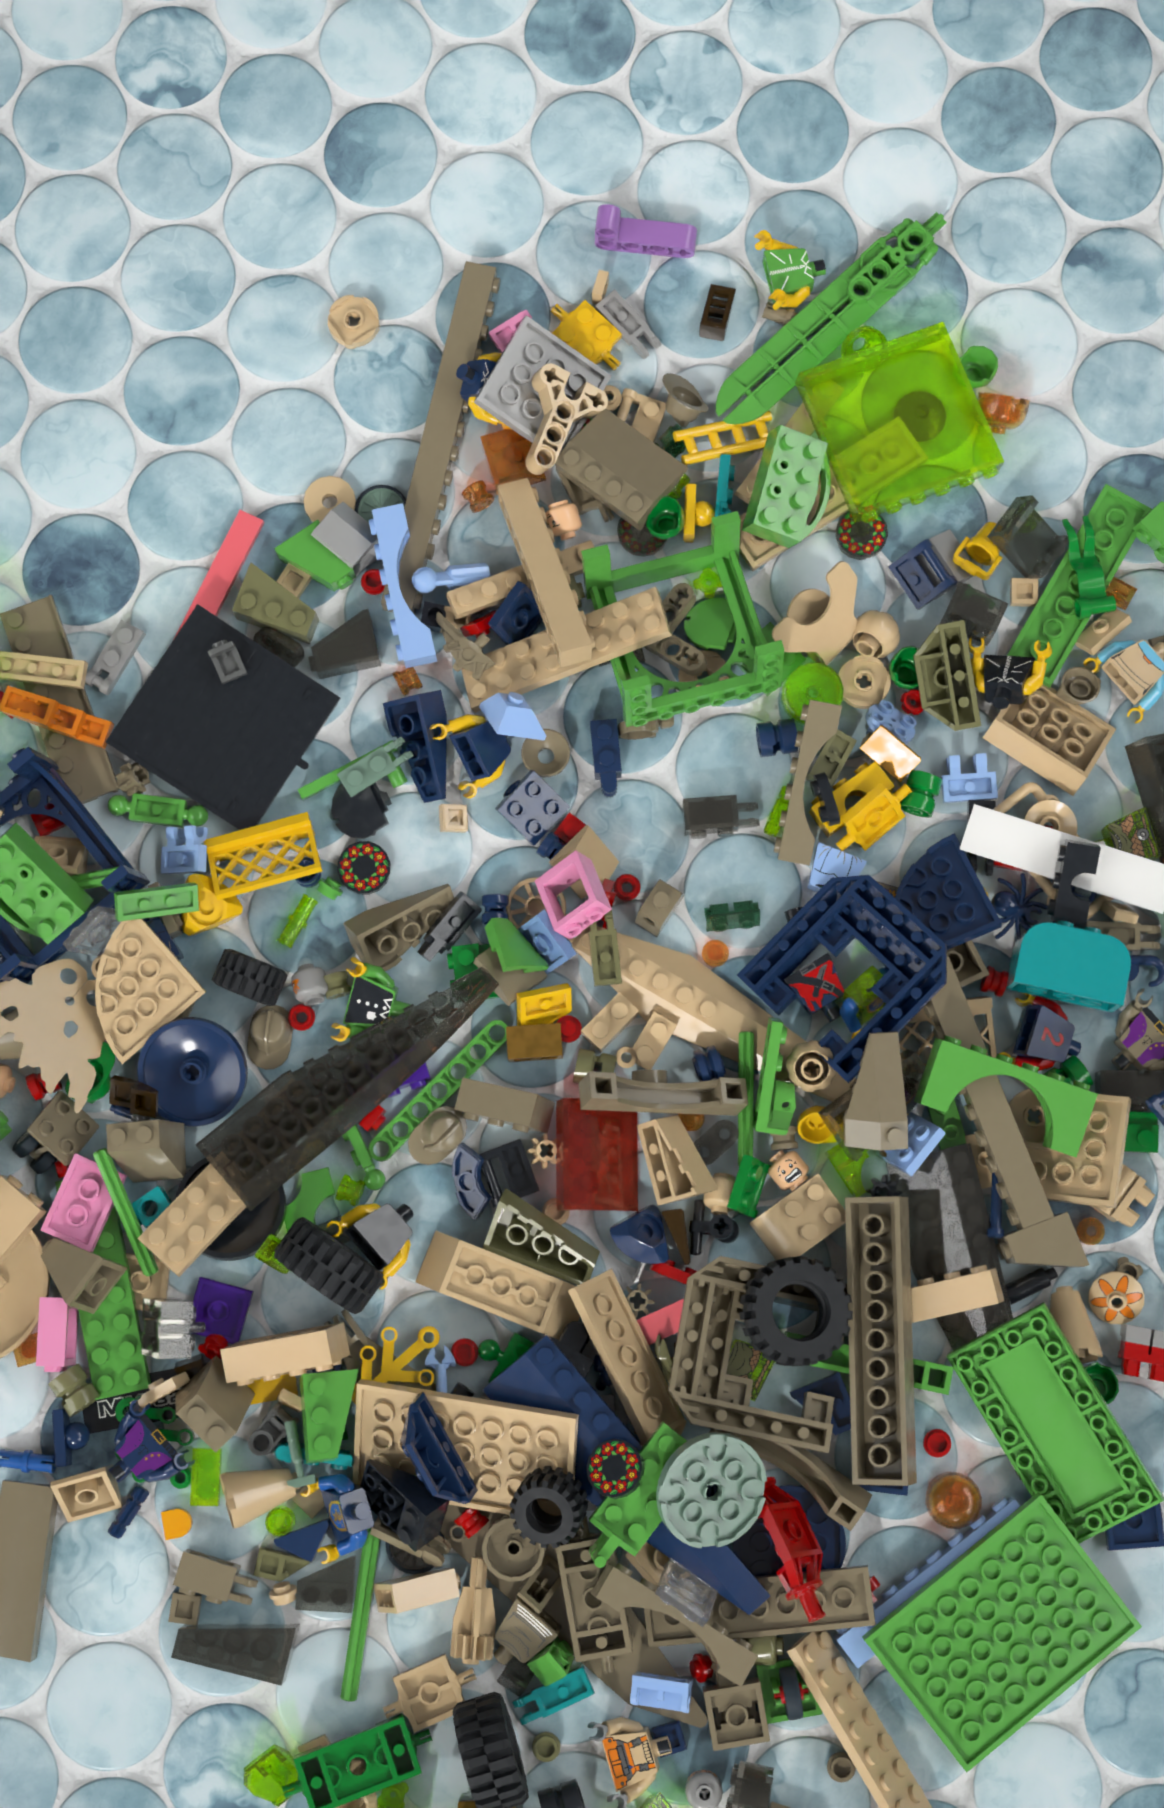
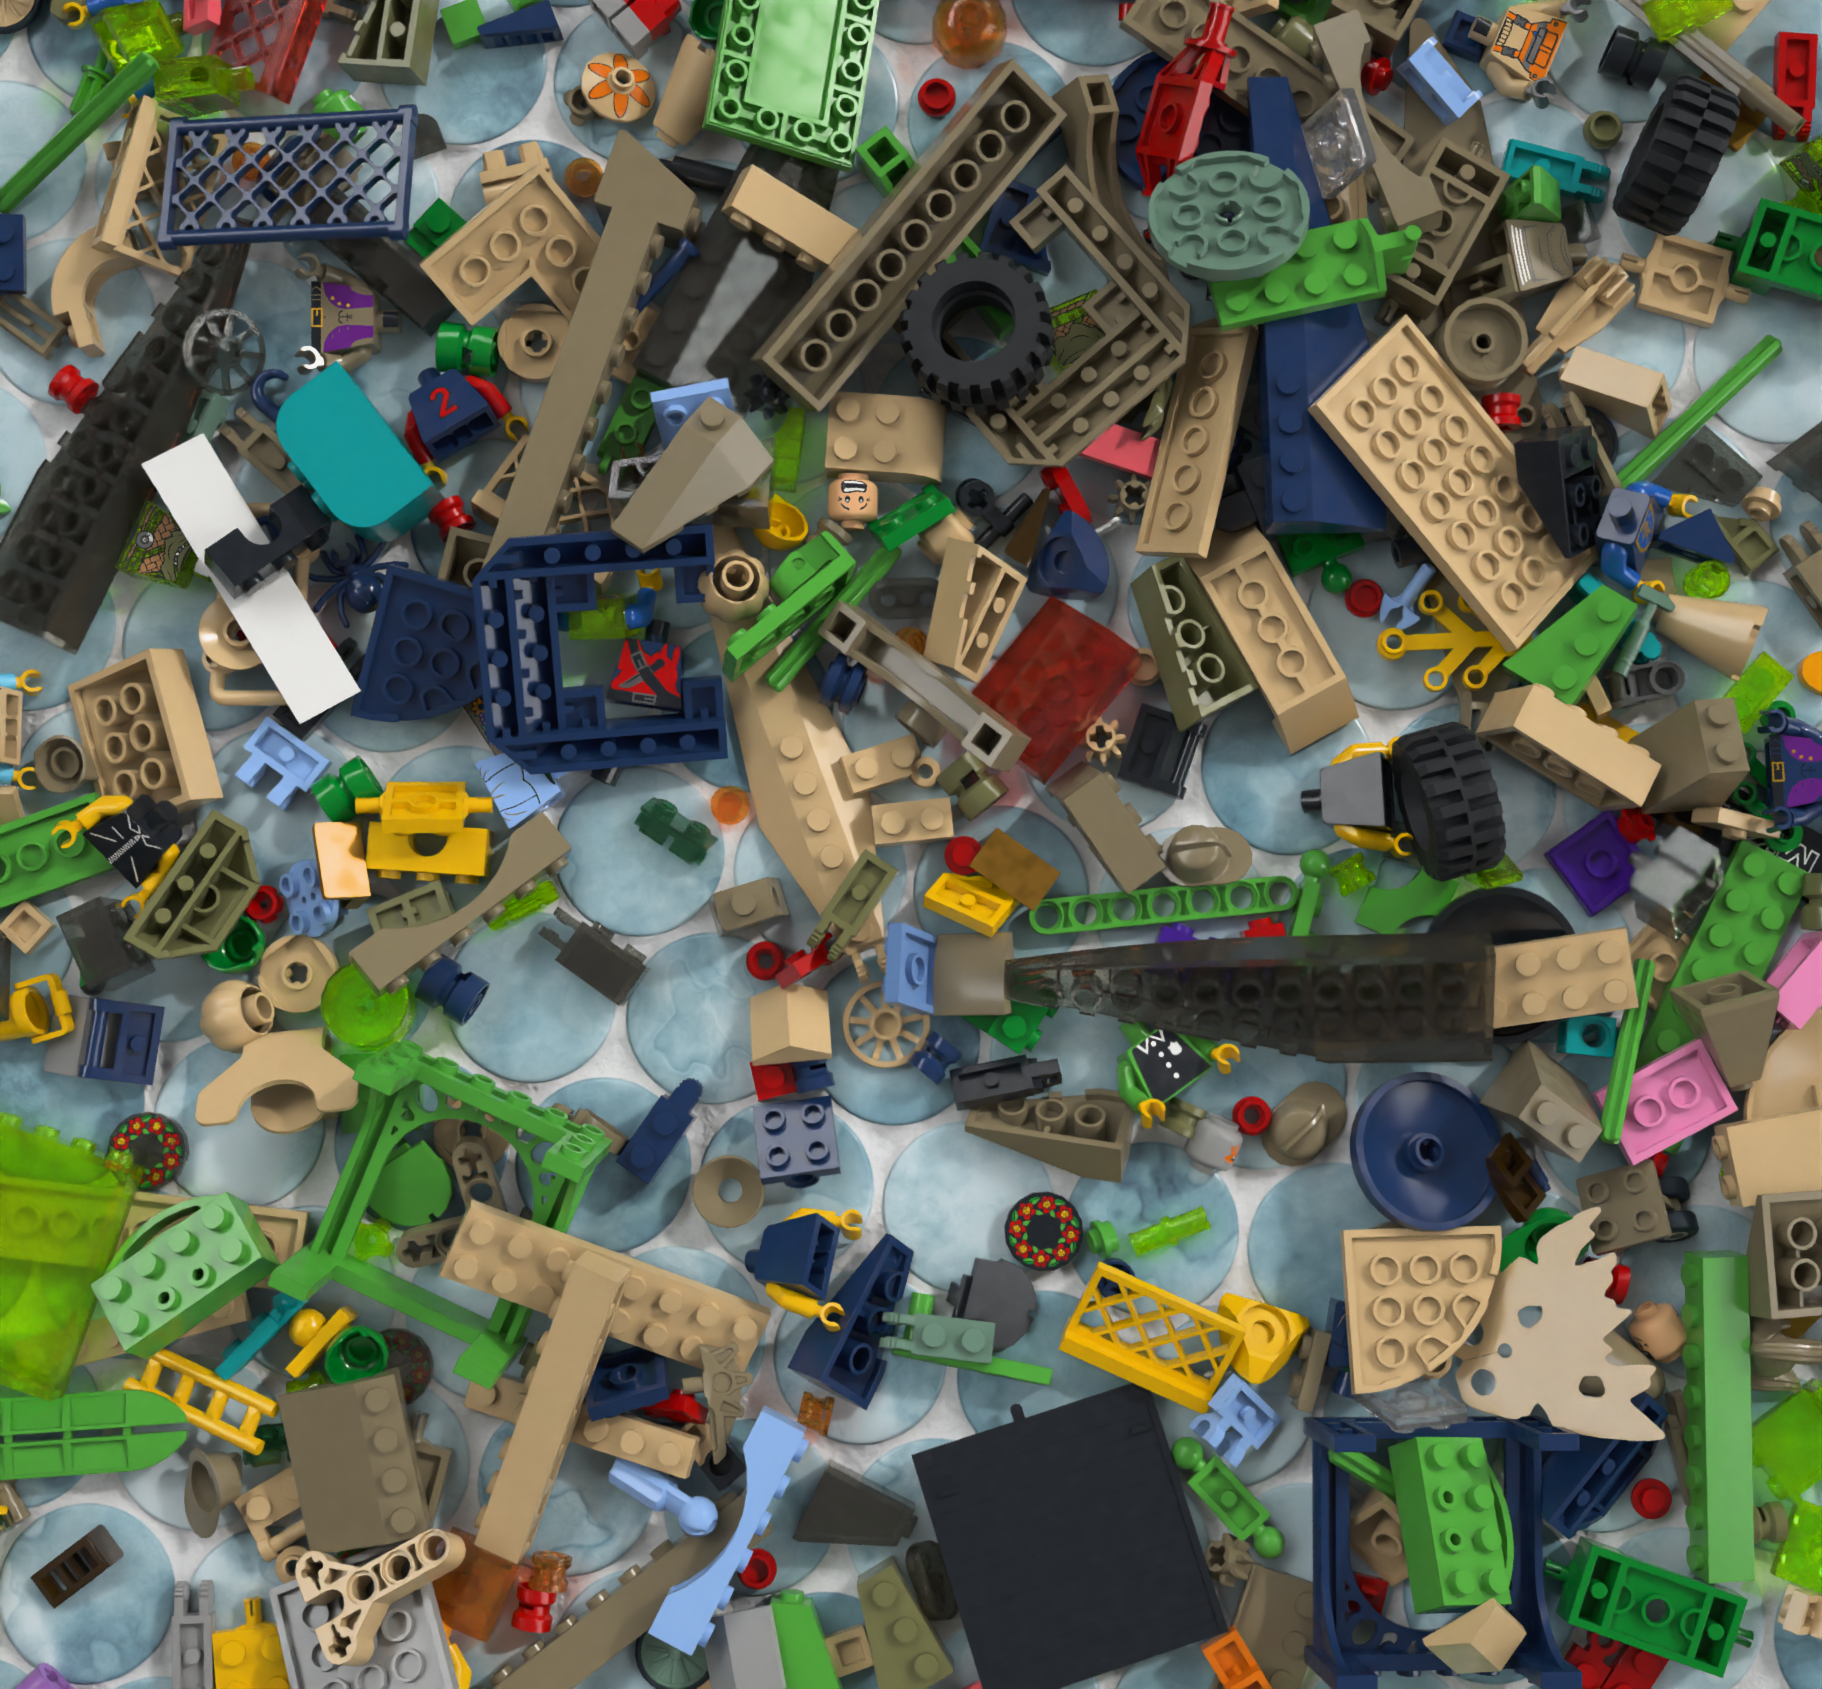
camera: 140 degrees left, 5 degrees up
(156, 901) = (1321, 1380): bright green plate -> none
(227, 661) = (1011, 1608): dark grey bracket -> none
(249, 977) = (1279, 1205): black tyre -> none
(434, 1454) = (1495, 497): dark blue wedge -> none
(453, 818) = (895, 1204): tan tile -> none
(468, 1182) = (1212, 778): dark blue tile -> none
(470, 471) = (533, 1610): none -> red wheel
(512, 716) = (735, 1261): light blue slope -> none
(512, 947) = (952, 992): bright green slope -> none
(540, 1525) = (1437, 329): black tyre -> none
(561, 877) = (835, 1027): bright pink window -> none
(563, 519) = (474, 1456): light nougat head -> none
(615, 1468) = (1315, 318): tile -> none
(821, 788) = (454, 882): black plate -> none
(1064, 1105) = (579, 442): bright green arch -> none
(1119, 912) = (248, 478): tan tile -> none

